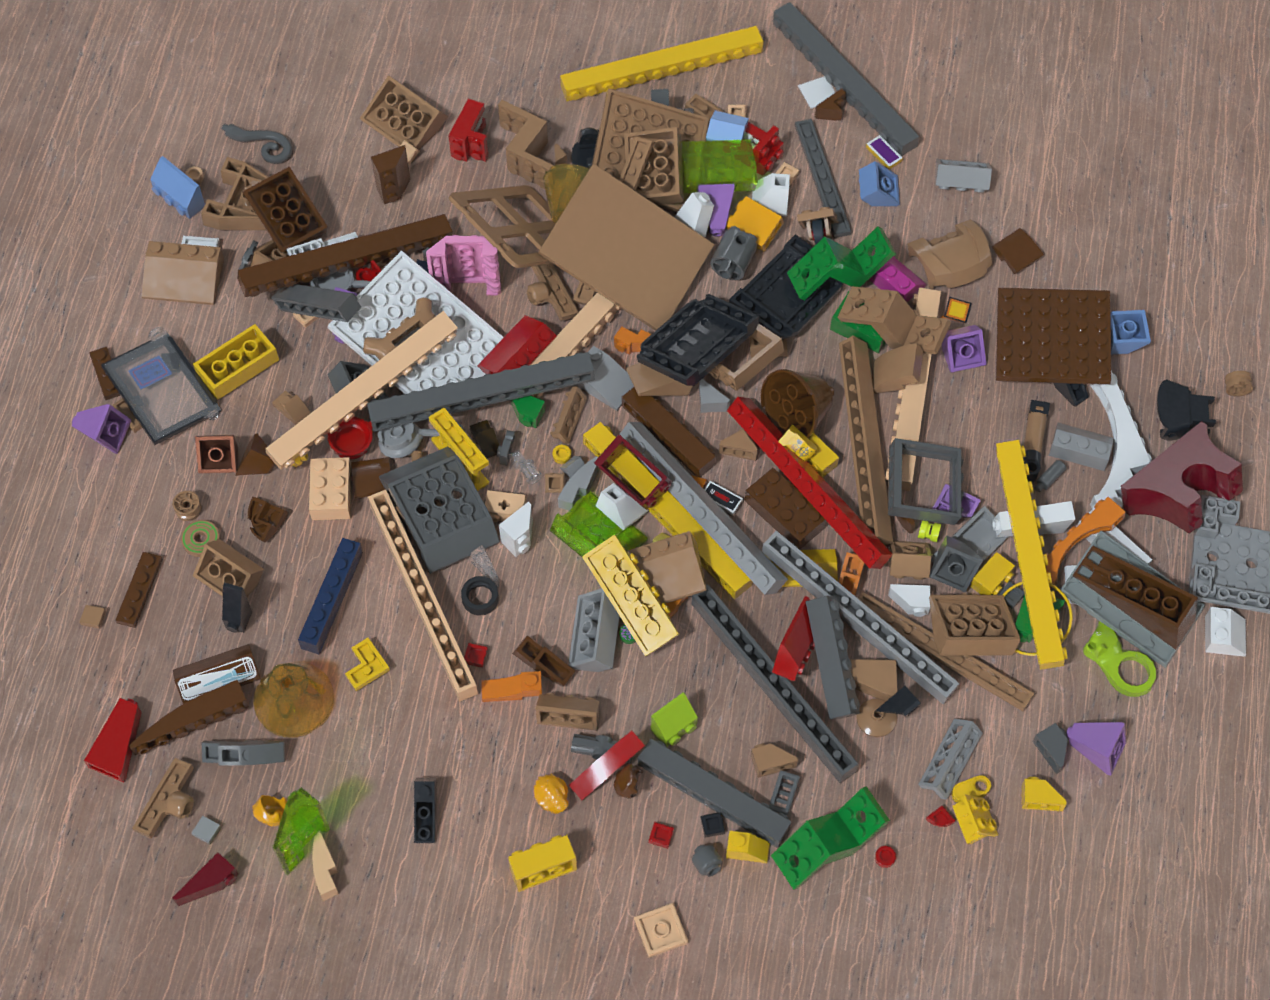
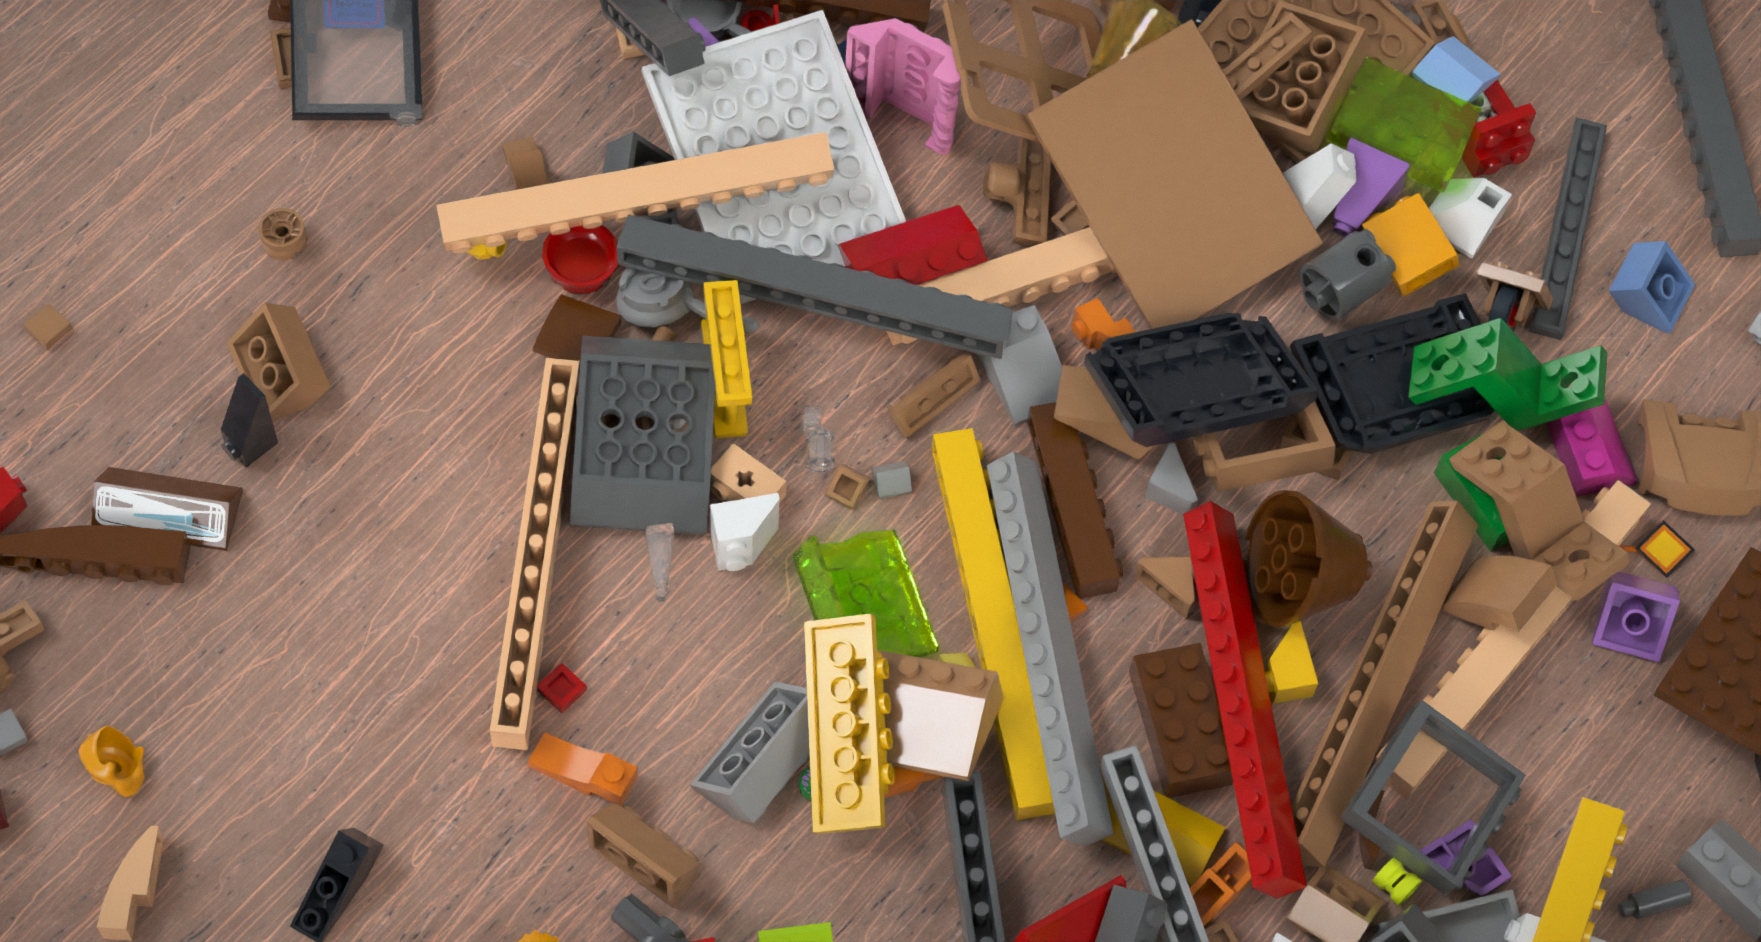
camera: 25 degrees right, 0 degrees up
(103, 425) = (235, 55): medium lavender slope -> none
(138, 589) = (137, 322): reddish brown plate -> none
(195, 529) = (270, 276): medium nougat tile -> none
(216, 453) = (372, 179): copper slope -> none
(236, 361) = (485, 56): yellow brick -> none
(243, 753) = (127, 648): dark grey slope -> none
(255, 458) = (420, 218): reddish brown slope -> none
(265, 518) = (383, 313): reddish brown brick -> none
(293, 699) = (253, 607): clear yellow cone -> none
(299, 824) = (112, 804): clear neon green piece -> none
(330, 488) = (503, 318): light nougat brick -> none
(330, 596) = (401, 480): dark blue brick -> none
(370, 666) = (395, 620): yellow plate -> none
(382, 346) = (703, 140): medium nougat plate -> none
(480, 581) = (617, 576): black tyre -> none
(485, 438) = (784, 364): dark brown slope -> none
(506, 448) = (805, 394): dark grey plate -> none
(529, 410) = (877, 355): green slope -> none
(543, 660) = (657, 755): reddish brown slope -> none
(561, 454) = (886, 448): yellow tile -> none
(578, 485) = (883, 508): light grey slope -> none
(609, 456) = (951, 488): dark red window -> none
(620, 506) = (924, 576): white slope -> none
(725, 499) = (1095, 650): tile -> none
(738, 110) = (1493, 54): light nougat slope -> none
(788, 169) = (1520, 189): light nougat tile -> none
(798, 443) = (1262, 626): yellow leg -> none
(816, 91) = (1644, 90): white sticker -> none
(831, 107) = (1646, 122): reddish brown slope -> none
(884, 152) = (1695, 237): tile -> none
(1034, 436) = (1663, 827): piece -> none

